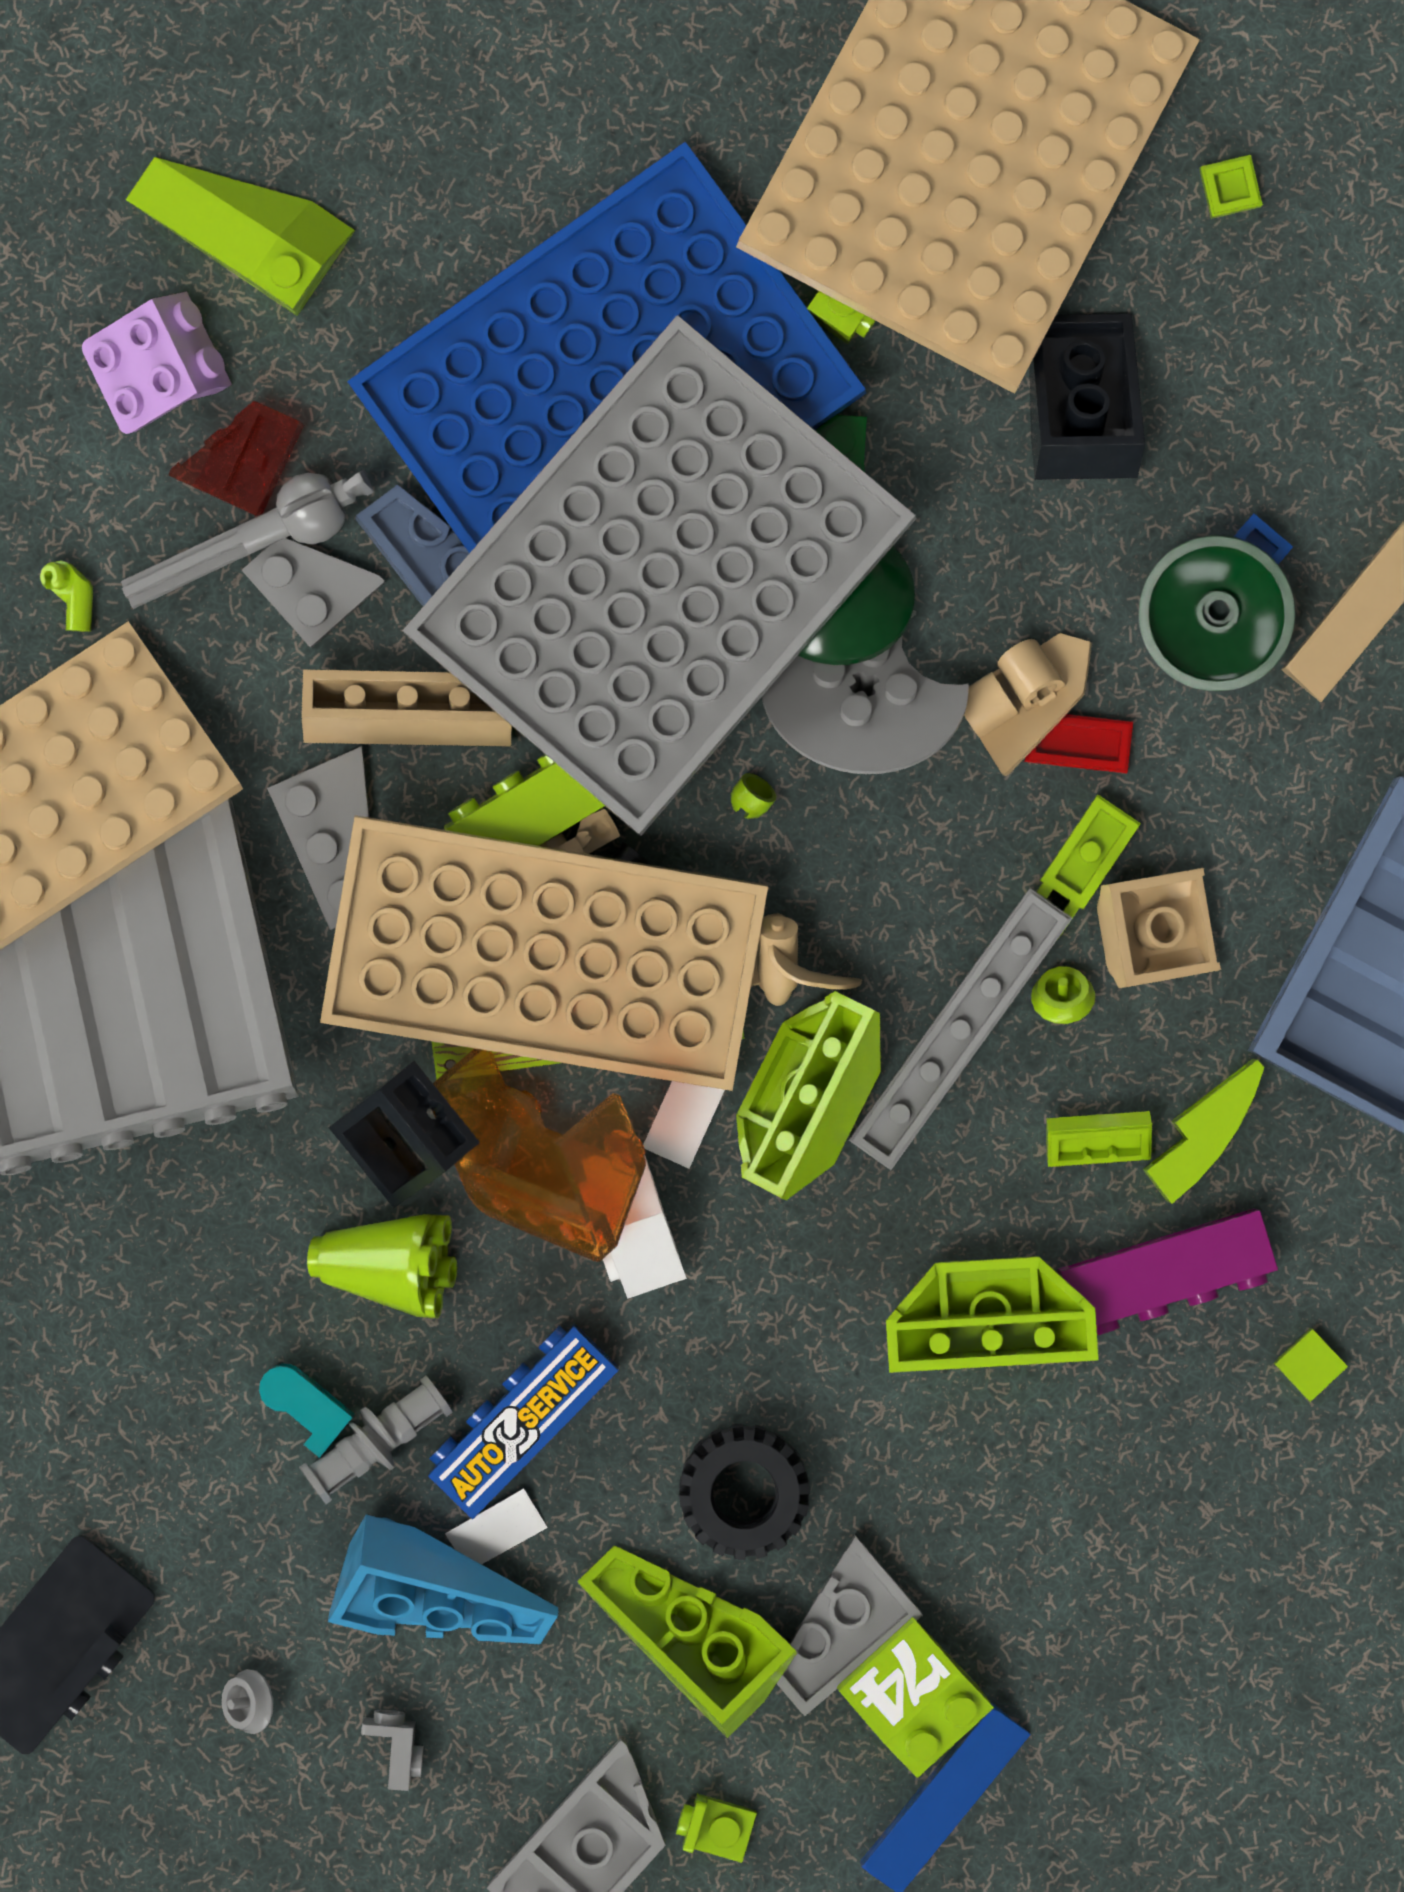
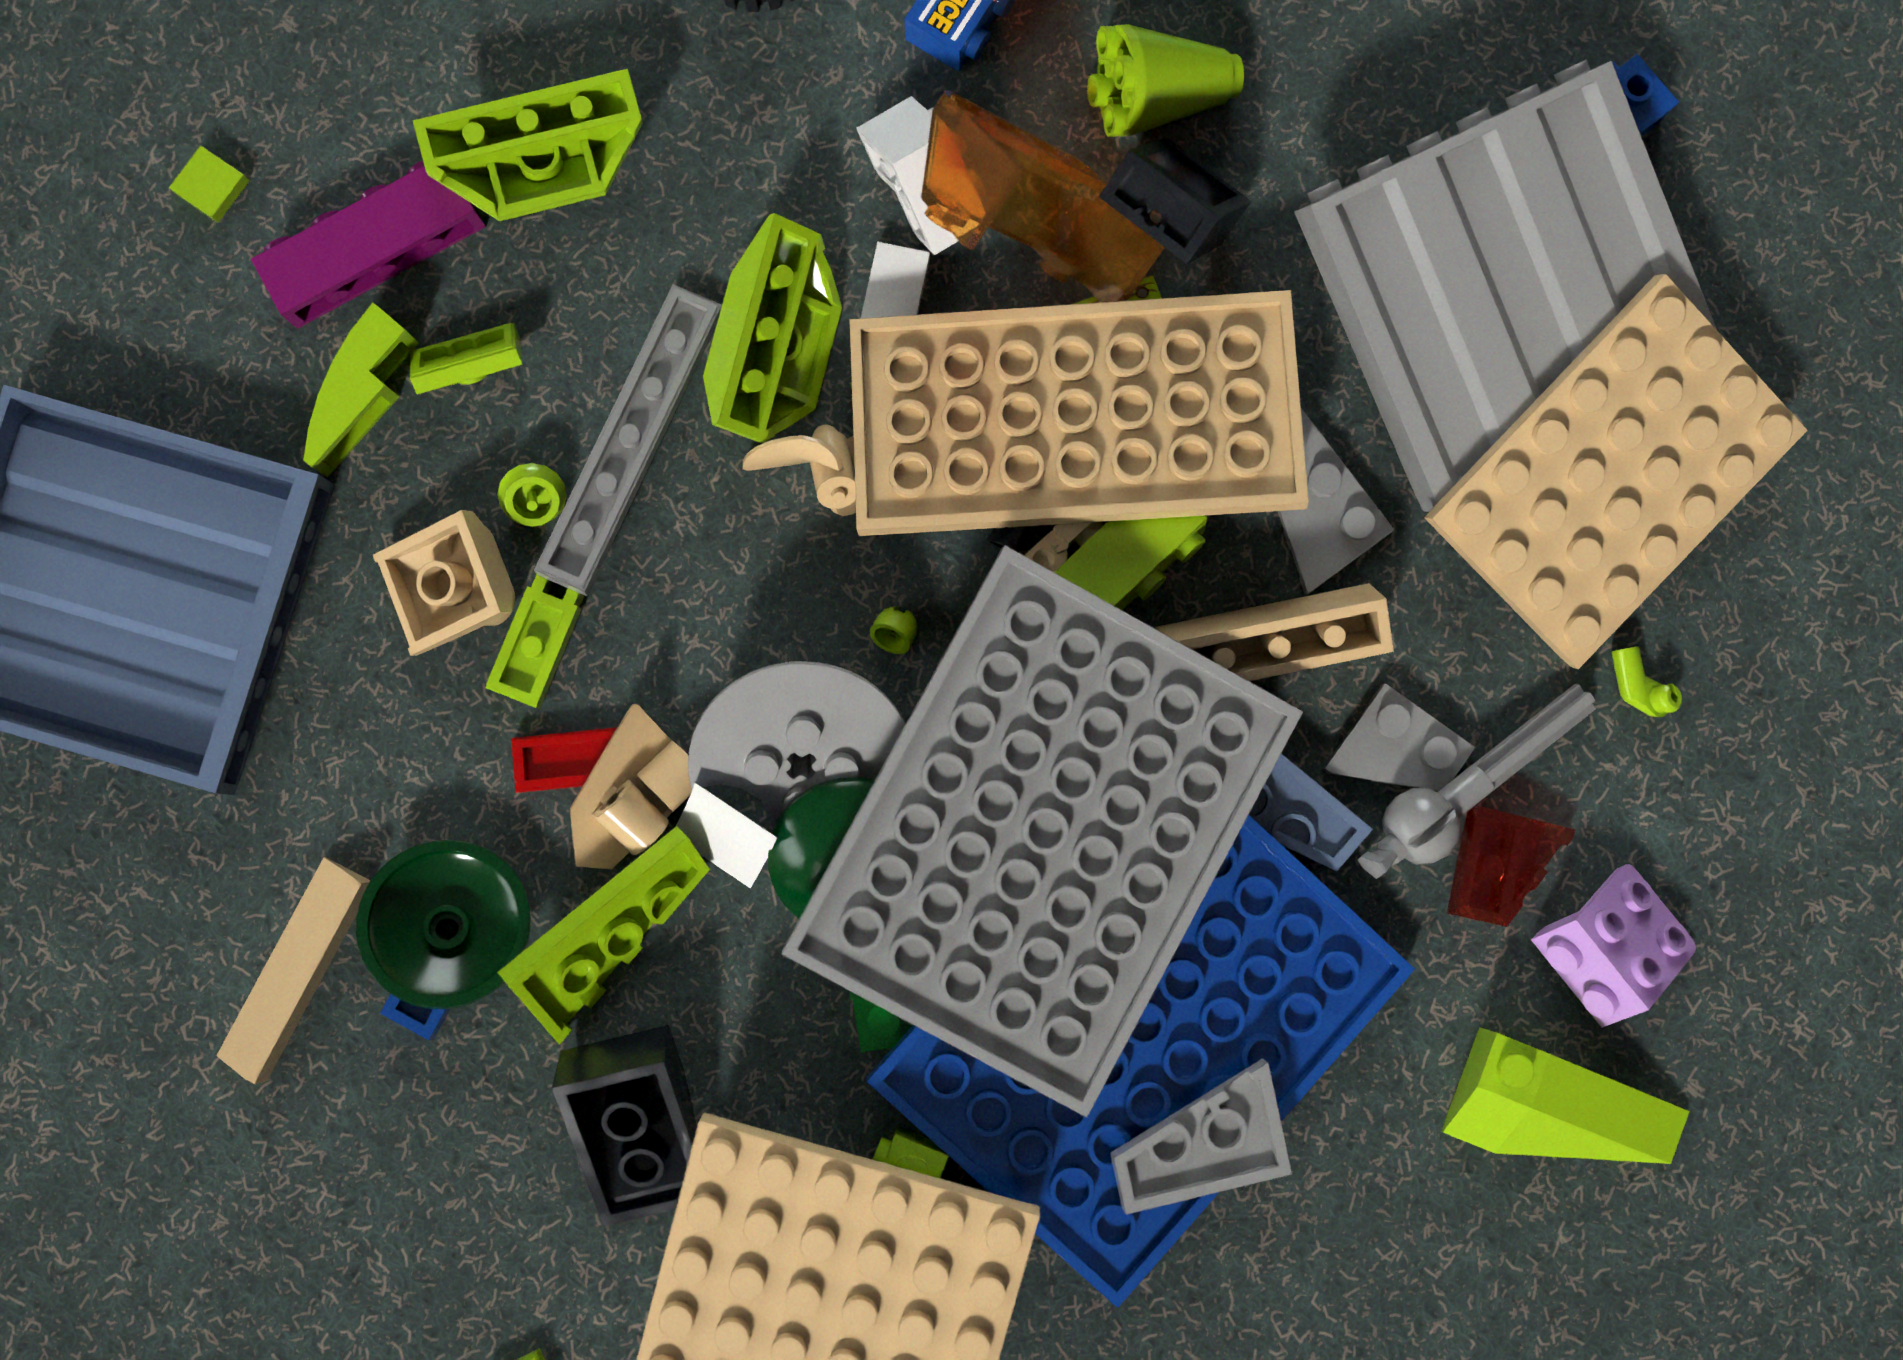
camera: 165 degrees right, 5 degrees down
(575, 265) = (1207, 1146): none -> light grey wing
(949, 638) = (725, 835): none -> white sticker
(1071, 577) = (584, 948): none -> lime wing

